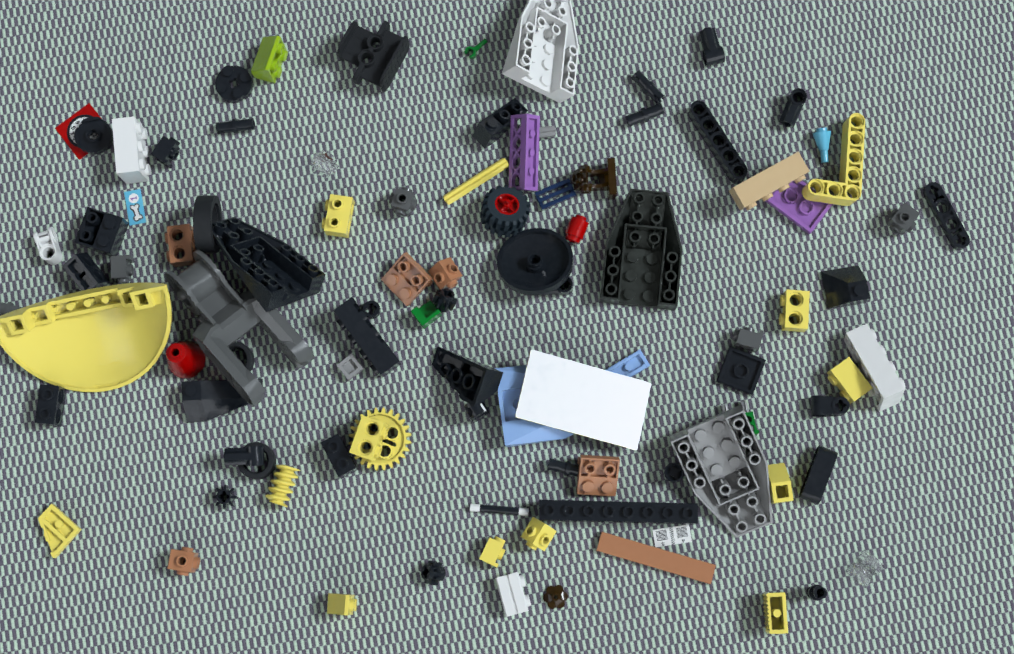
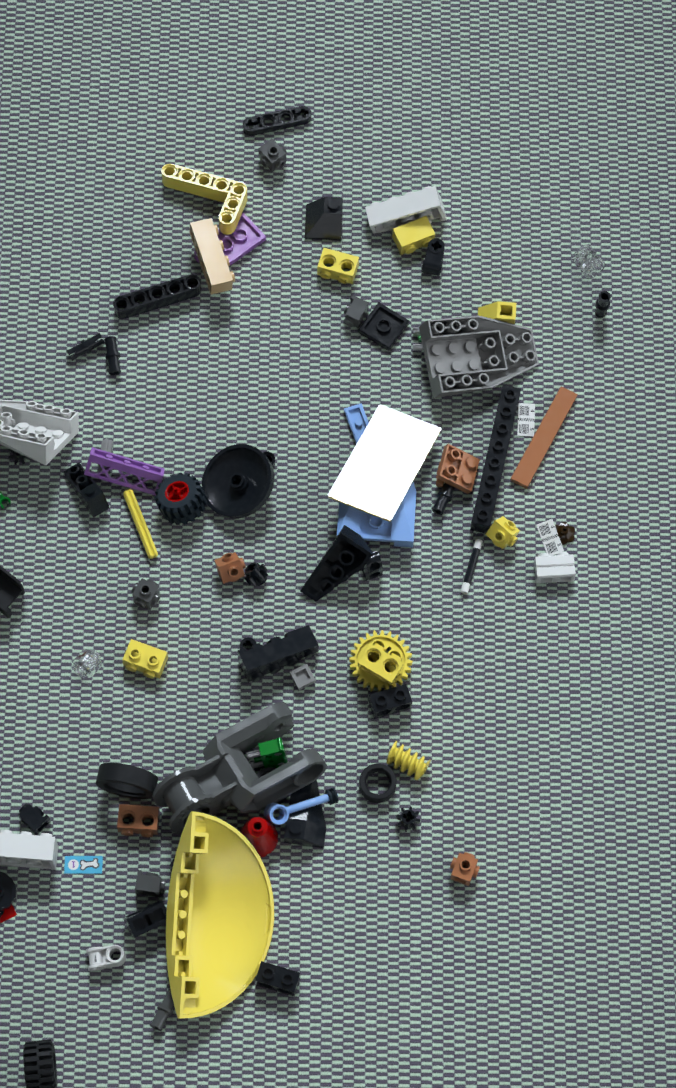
camera: 85 degrees left, 10 degrees down
(58, 529) = (407, 992): light yellow wing -> none
(101, 232) = (105, 896): black slope -> none
(208, 369) = (330, 796): none -> light blue piece
(235, 126) = (23, 745): black pin -> none
(244, 456) = (373, 784): black piece -> none
(262, 352) = (269, 754): none -> green piece
(266, 264) = (183, 731): black wedge -> none
(341, 604) = (535, 723): light yellow slope -> none
(407, 279) = (226, 605): nougat plate -> none
(426, 314) = (265, 595): green panel -> none
(433, 572) = (516, 635): black gear -> none
(493, 551) = (511, 578): light yellow brick -> none
(547, 584) = (550, 537): none -> white sticker
(551, 188) = (169, 439): dark blue tile -> none
(576, 229) = (212, 440): red brick -> none
(607, 179) = (170, 403): dark brown tile -> none
(643, 254) = (253, 383): pearl dark grey wedge -> none
(675, 470) = (471, 400): black wheel -> none
(712, 51) = (66, 281): black piece -> none
(775, 613) = (614, 343): light yellow brick -> none
(792, 108) = (141, 224): black piece -> none
(818, 475) = (495, 281): black beam -> none
(822, 140) = (176, 205): medium azure cone -> none

